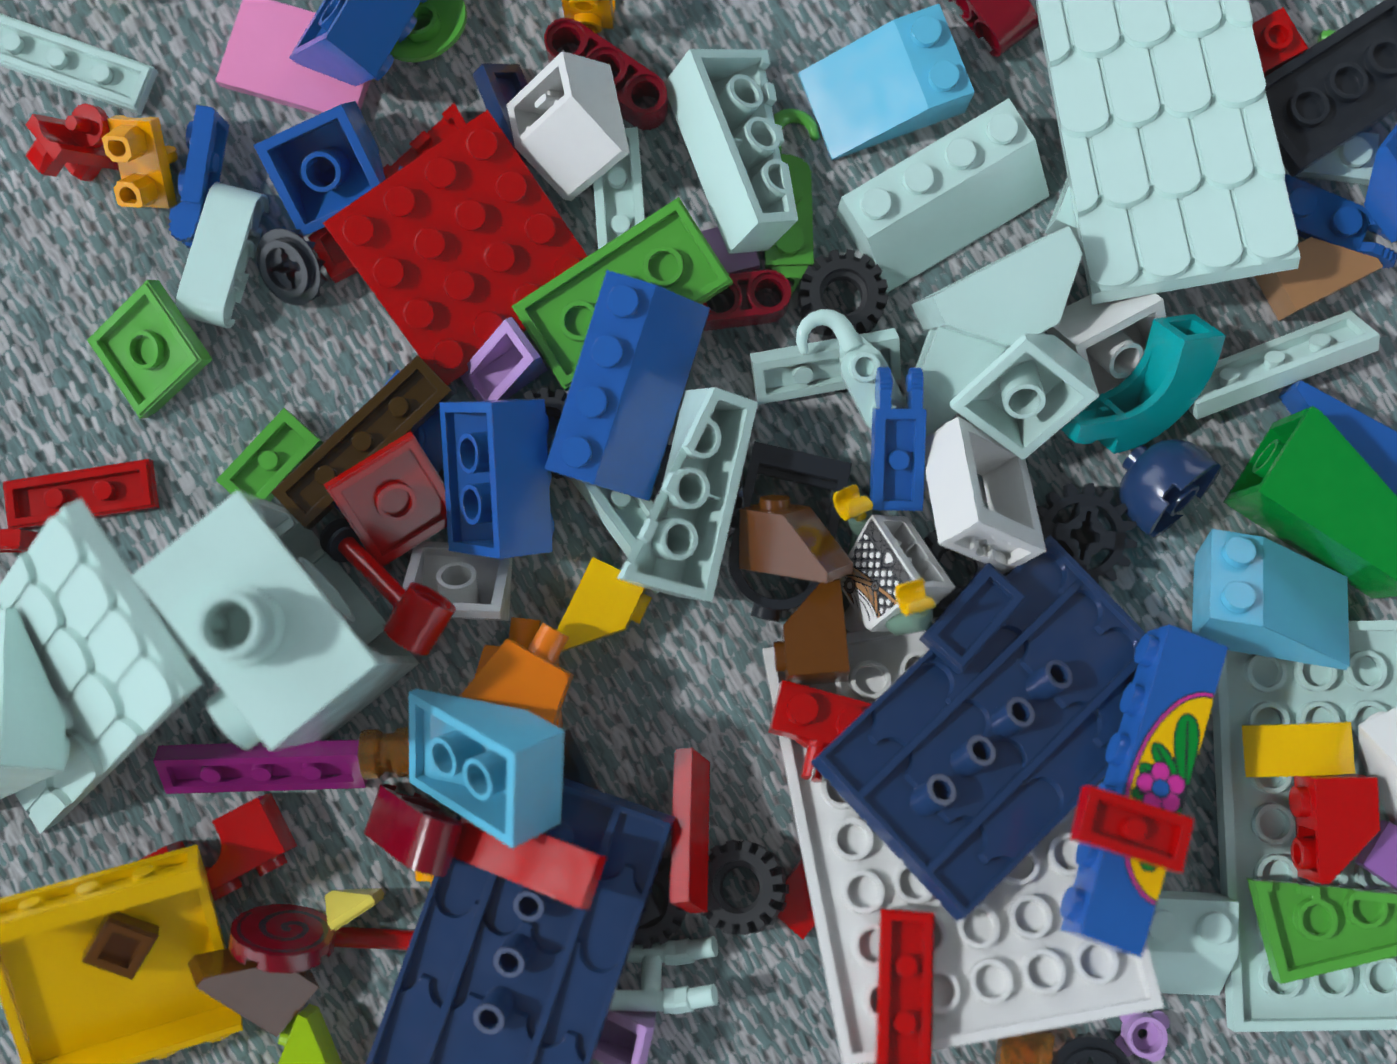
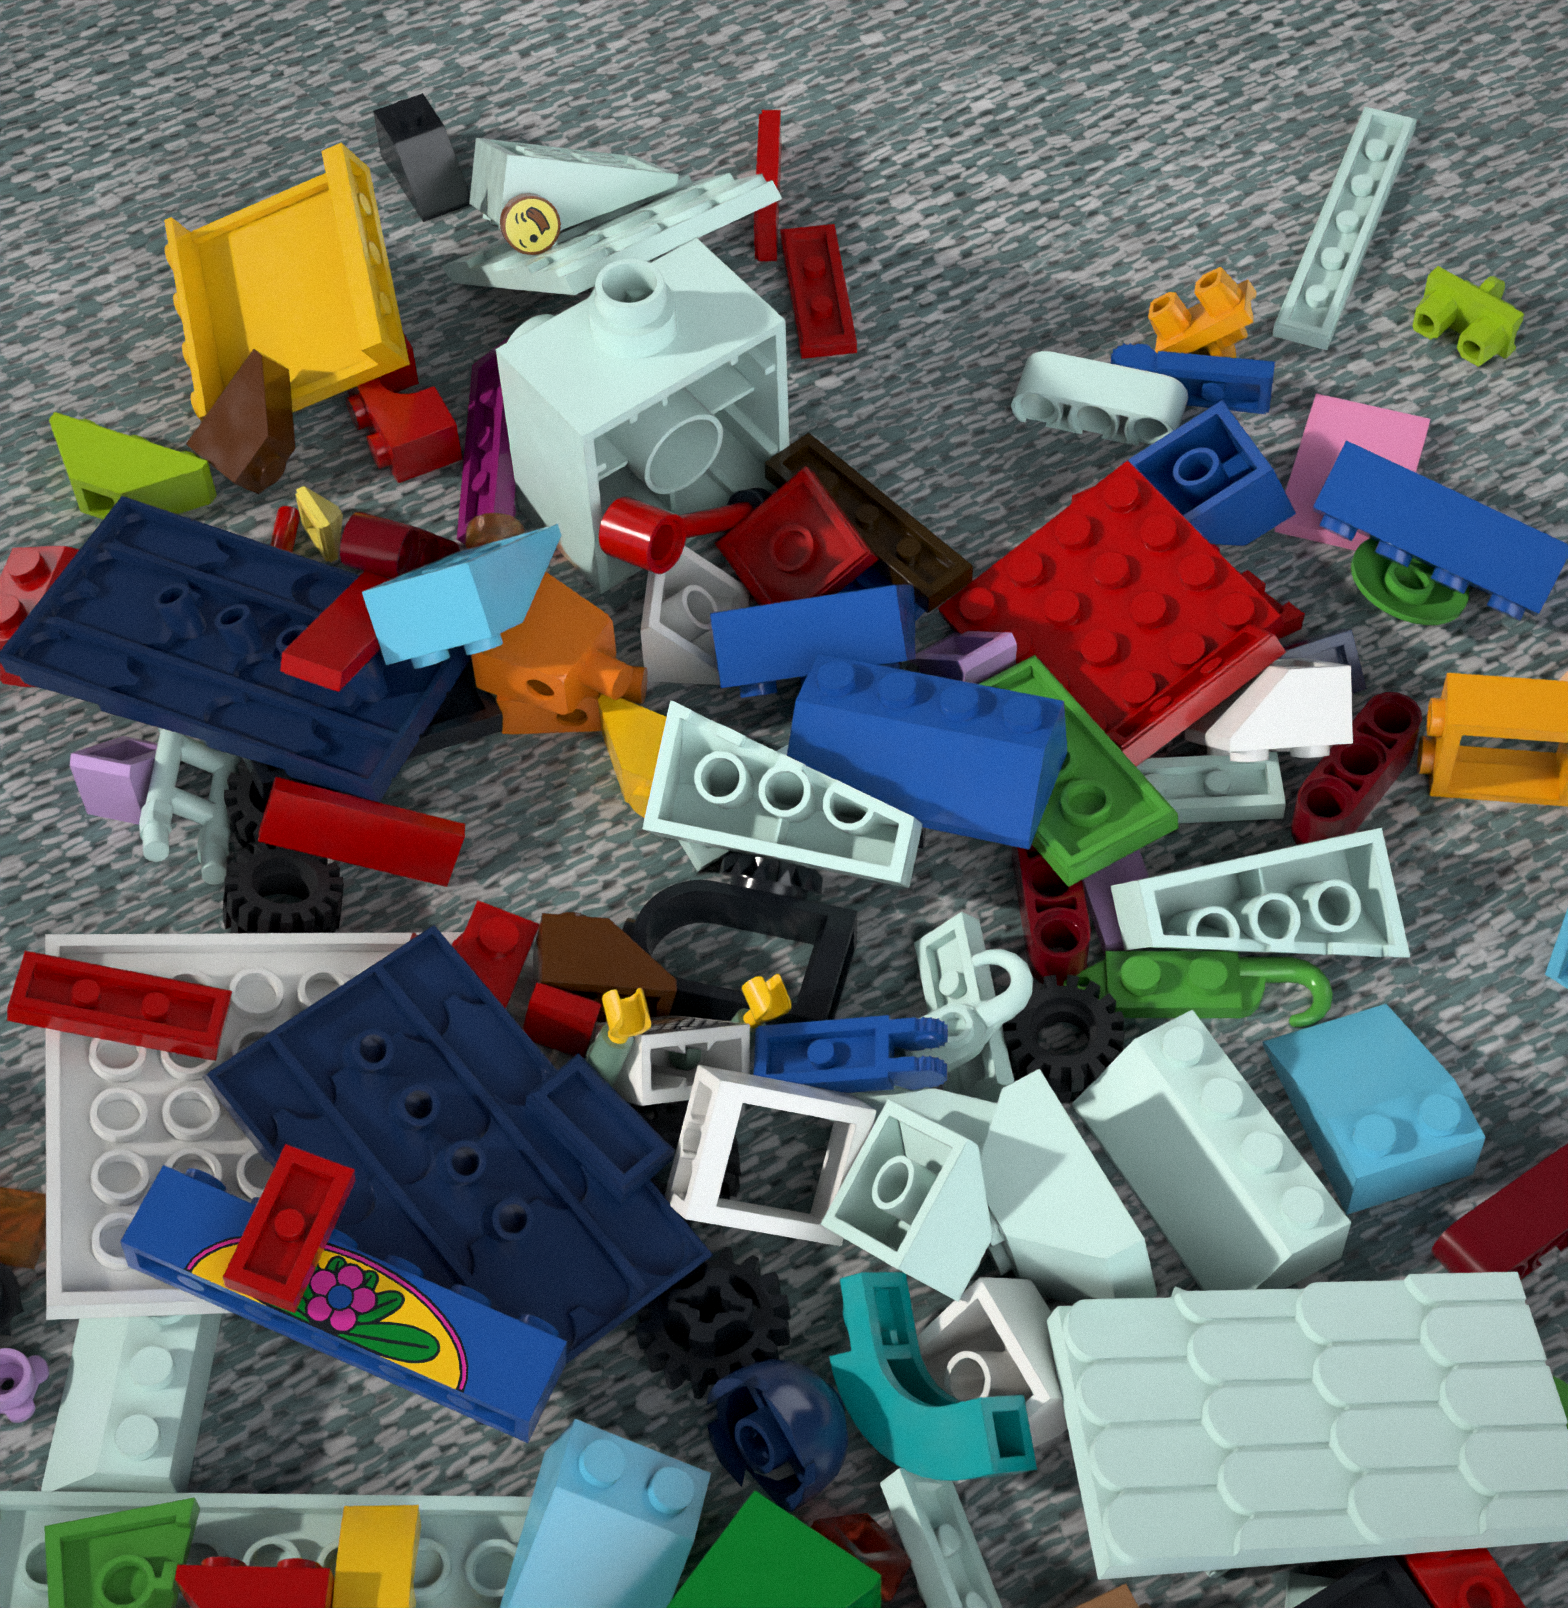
camera: 95 degrees right, 30 degrees down
(66, 741) = (530, 224): none -> tile
(70, 143) = (1223, 243): red hips -> none
(120, 944) = (310, 298): reddish brown tile -> none
(149, 349) = (983, 336): bright green plate -> none
(270, 457) = (855, 442): bright green plate -> none
(281, 938) = (294, 445): dark red tile -> none
(286, 283) = (1086, 458): black gear -> none
(558, 182) = (1195, 692): none -> red tile
(789, 542) = (718, 932): reddish brown slope -> none
(863, 656) = (561, 1019): none -> red tile
(1247, 430) = (869, 1544): none -> clear red slope

